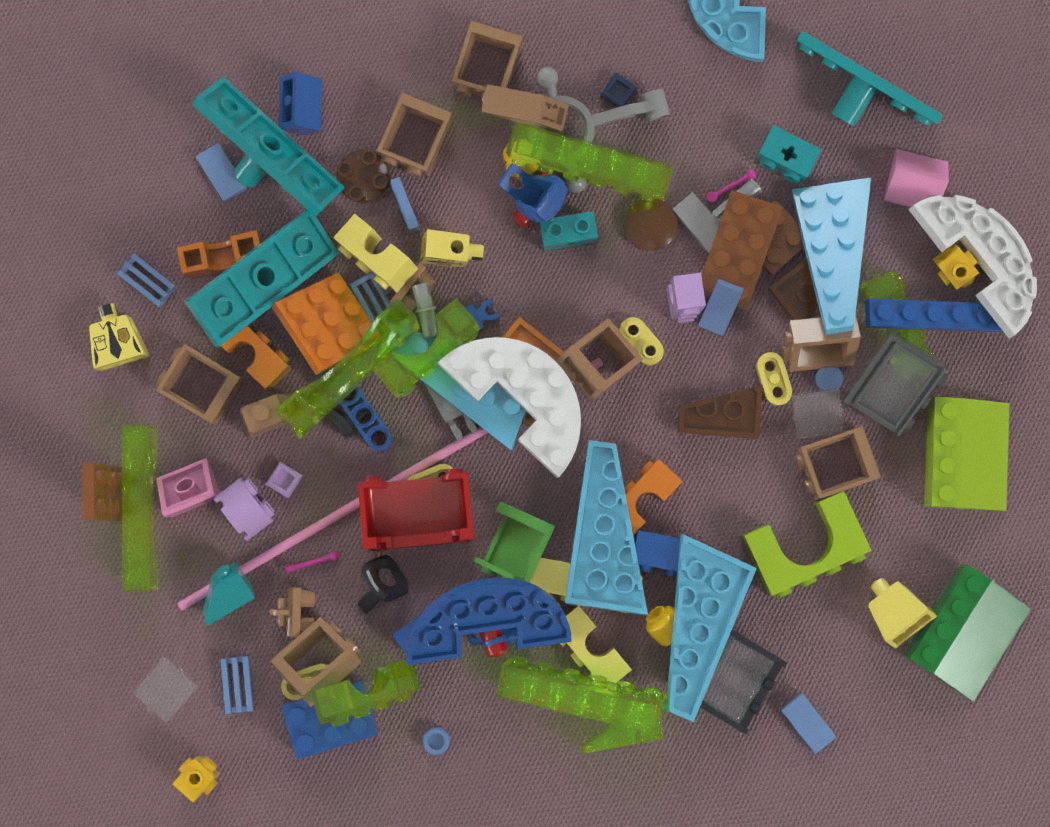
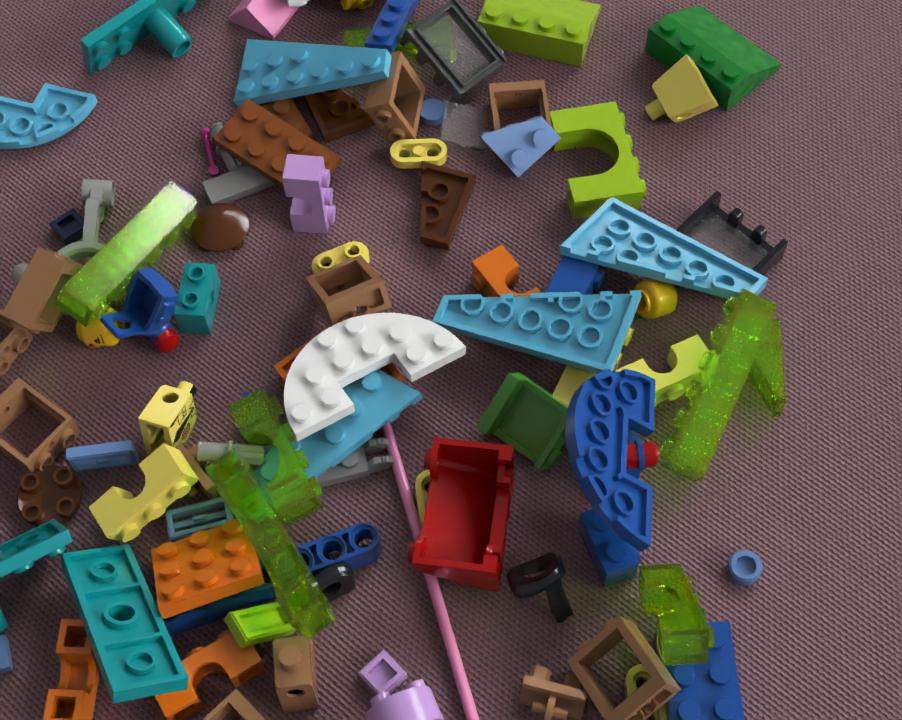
camera: 75 degrees left, 25 degrees down
(290, 373) = (258, 624): none -> lime tile
(333, 556) = (493, 637): dark pink hinge -> none
(720, 307) = (341, 183): medium blue tile -> none
(800, 473) = (522, 143): none -> light blue wing
(801, 159) = (197, 95): teal brick -> none
(808, 723) = (782, 198): medium blue tile -> none

